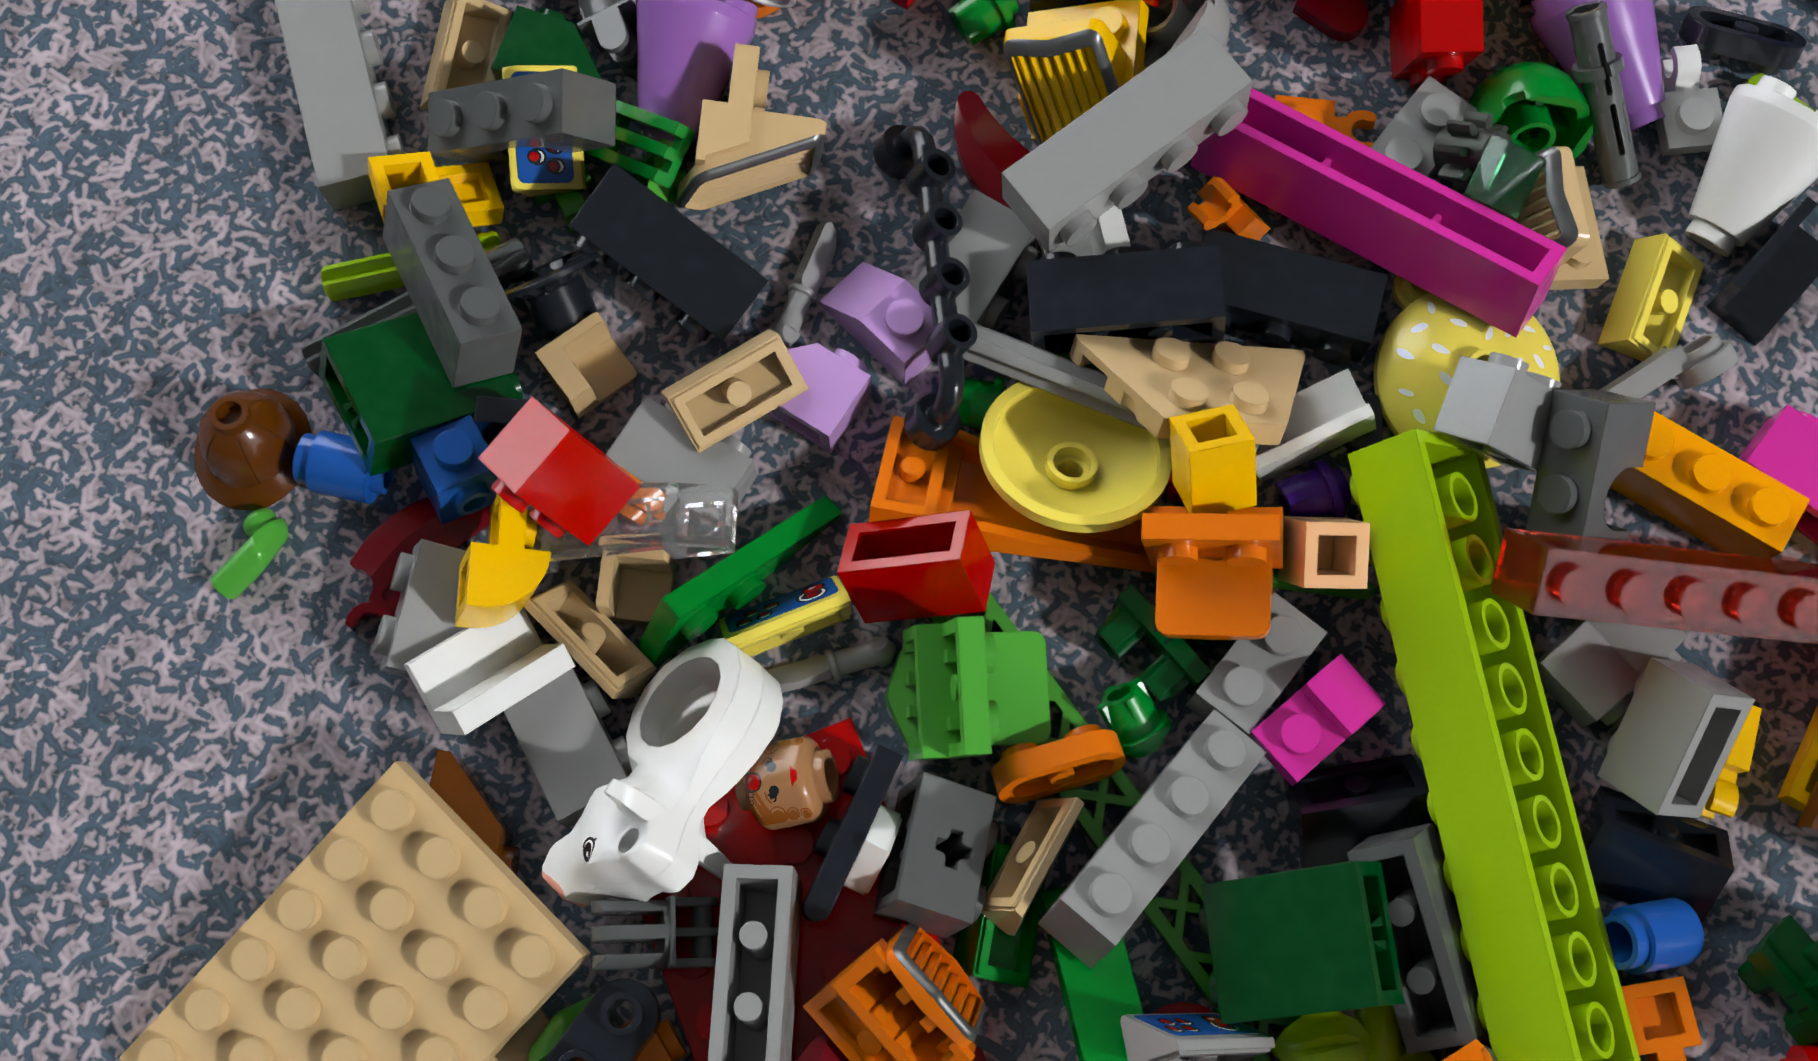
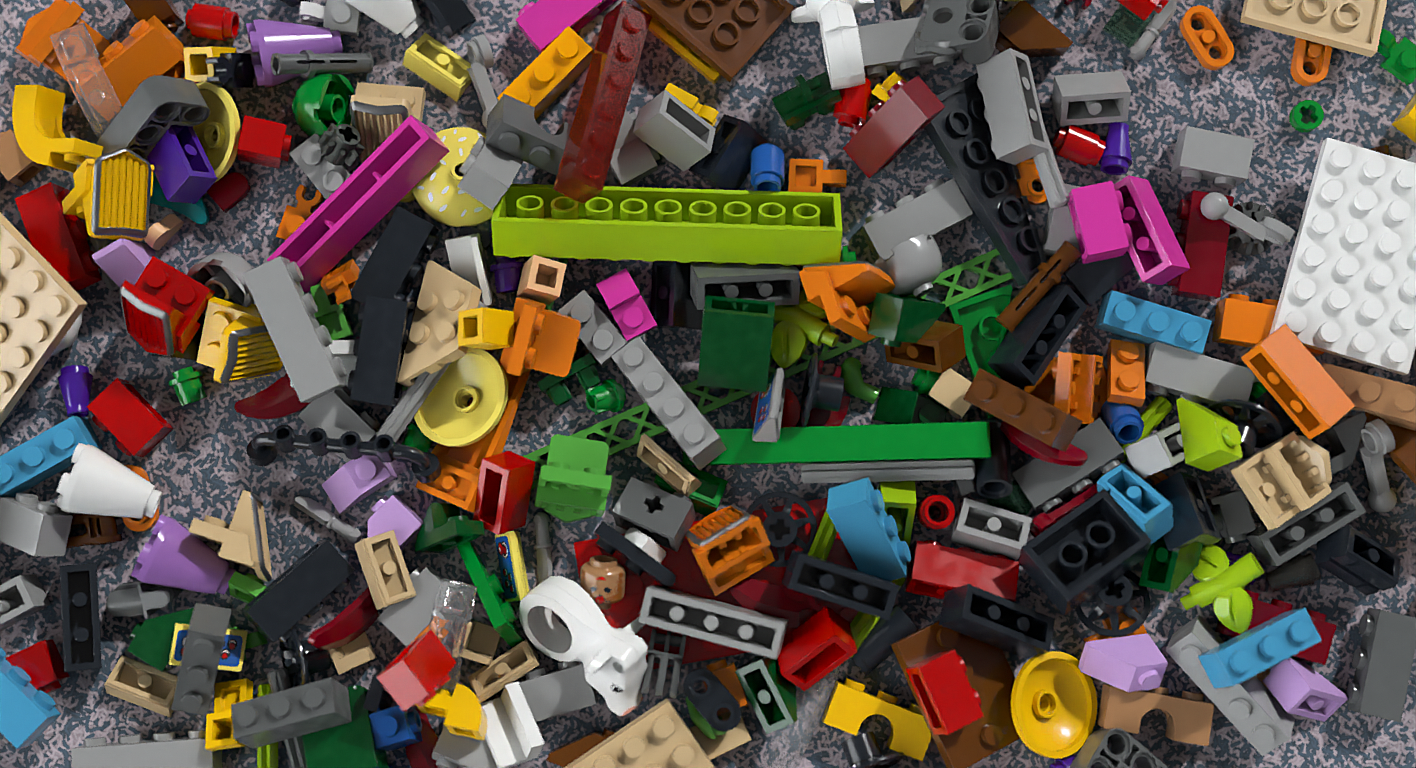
camera: 75 degrees left, 10 degrees up
(621, 345) = (347, 625): none -> dark red piece
(673, 155) = (245, 578): green tile -> none
(828, 481) = (446, 529): none -> dark green slope
(1043, 770) = (620, 429): orange plate -> none
(1162, 208) = (330, 315): none -> bright green plate
(1504, 176) = (361, 134): clear green tile -> none

